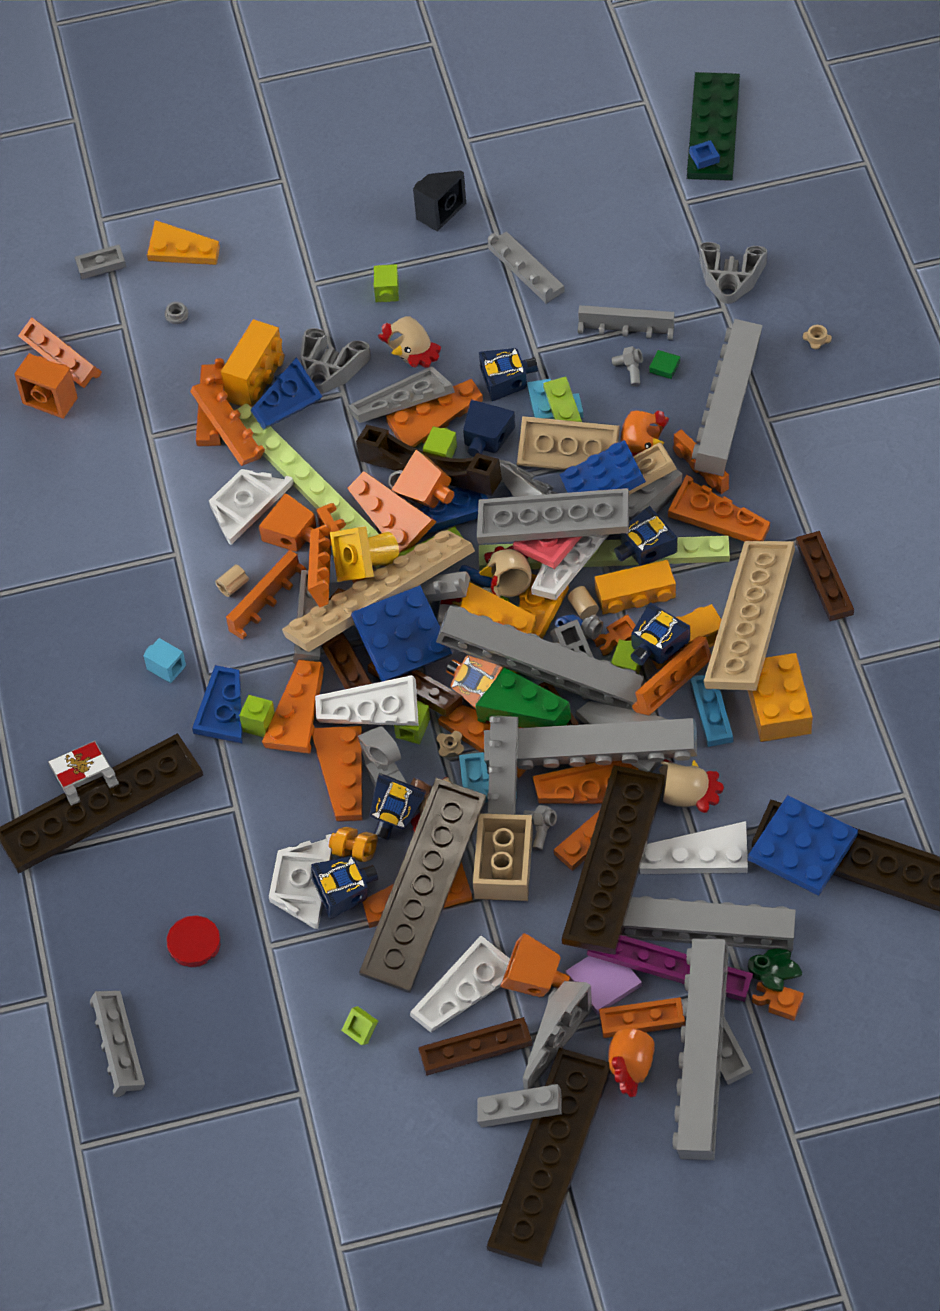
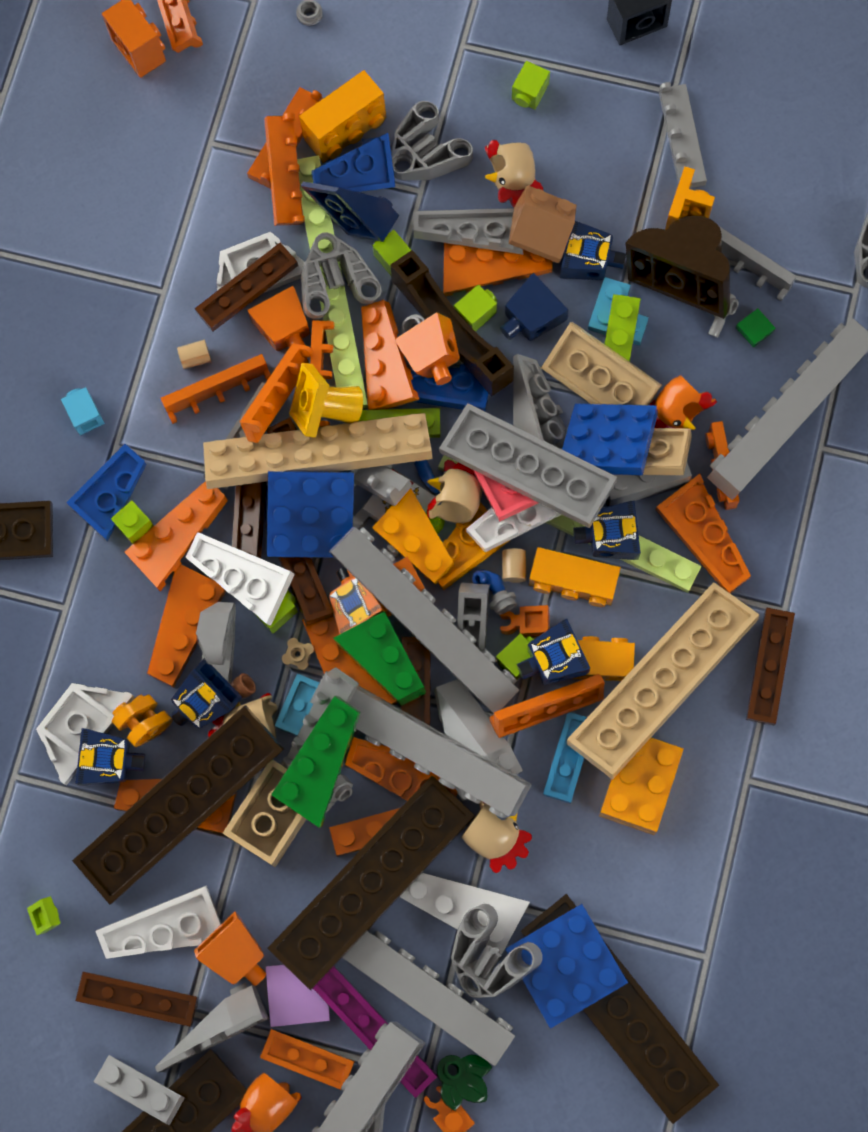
camera: 30 degrees right, 20 degrees up
(247, 511) = (246, 287): none -> reddish brown plate
(302, 416) = (354, 211): none -> dark blue slope
(307, 470) = (353, 267): none -> light grey connector
(345, 439) = (390, 250): none -> lime brick
(457, 362) = (542, 223): none -> medium nougat slope
(520, 797) = (315, 769): none -> green wing
(562, 303) = (687, 201): none -> light orange bracket
(584, 339) = (683, 263): none -> dark brown brick
(761, 865) = (468, 945): none -> light grey connector

